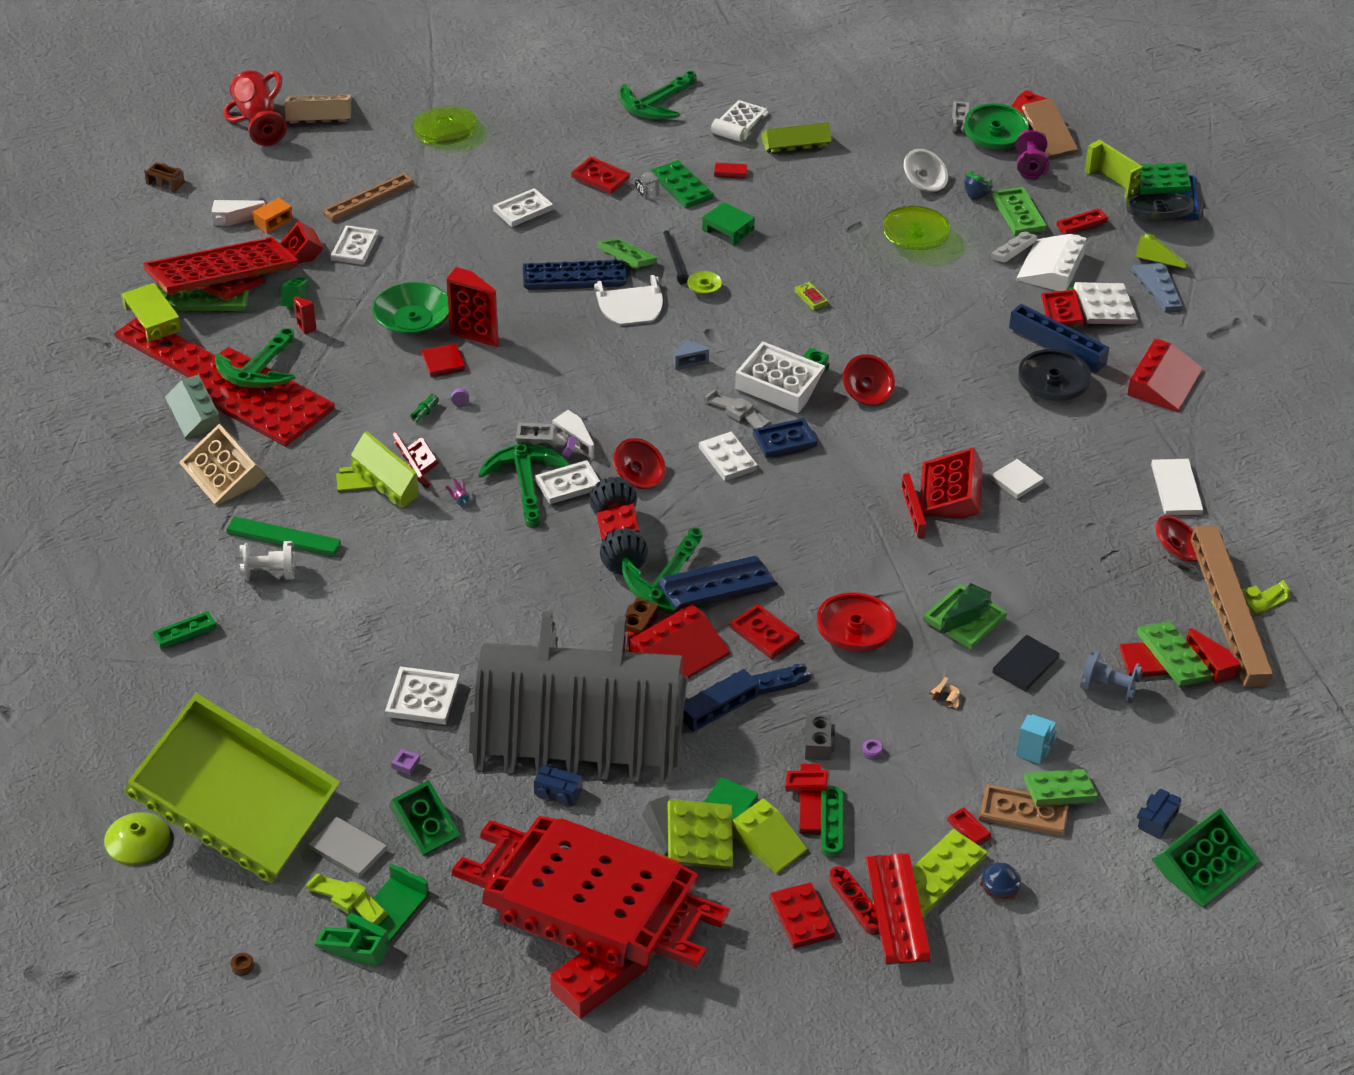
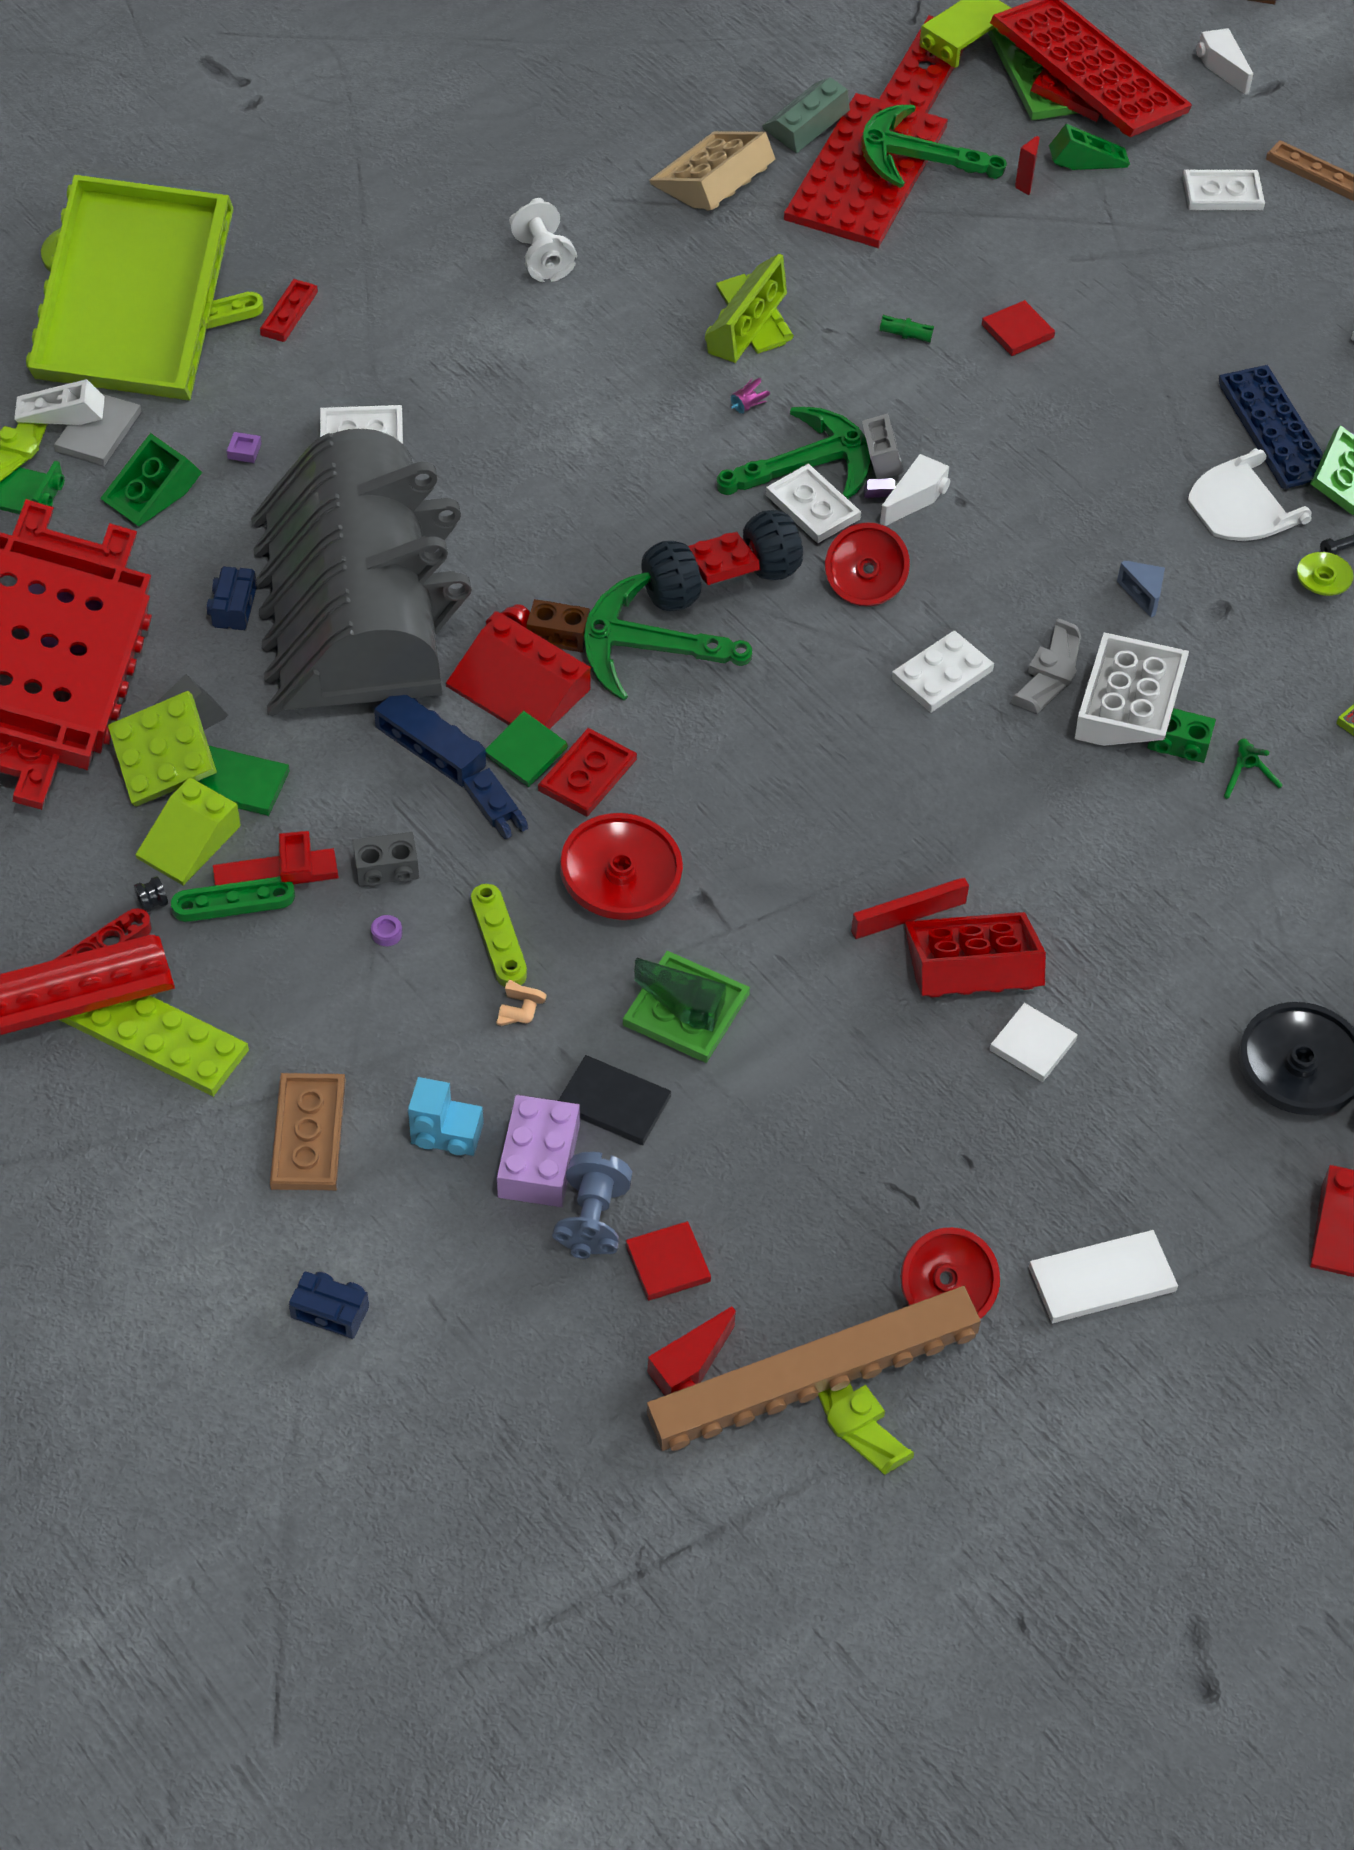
camera: 75 degrees right, 10 degrees up
(184, 630) = (414, 205): green plate -> none
(264, 720) = (288, 310): none -> red tile
(272, 215) = (1237, 94): orange brick -> none
(278, 534) = (611, 254): green tile -> none
(302, 243) = (1189, 136): red slope -> none
(329, 857) = (65, 404): none -> white slope
(411, 307) = (1094, 263): green dish -> none
(419, 456) = (799, 339): bracket -> none
(460, 397) = (941, 358): medium lavender tile -> none
(472, 307) = (1104, 306): red slope -> none
(716, 582) = (653, 694): dark blue plate -> none
(741, 653) = (526, 749): none -> green tile
(784, 437) = (1006, 729): dark blue plate -> none
(802, 915) = (63, 893): red plate -> none
(819, 863) = (151, 894): none -> black wheel
(832, 346) = (1249, 758): none -> green plant
(874, 373) = (1162, 790): red dish -> none
(888, 695) = (498, 934): none -> lime plate
(969, 826) = (260, 1066): red tile -> none
(1001, 881) = (154, 1111): dark blue hair -> none
(1060, 787) = (354, 1167): bright green plate -> none
(1063, 698) = (538, 1150): none -> lavender brick
(1174, 653) = (687, 1297): bright green plate -> none
(1206, 858) = (249, 1377): green slope -> none

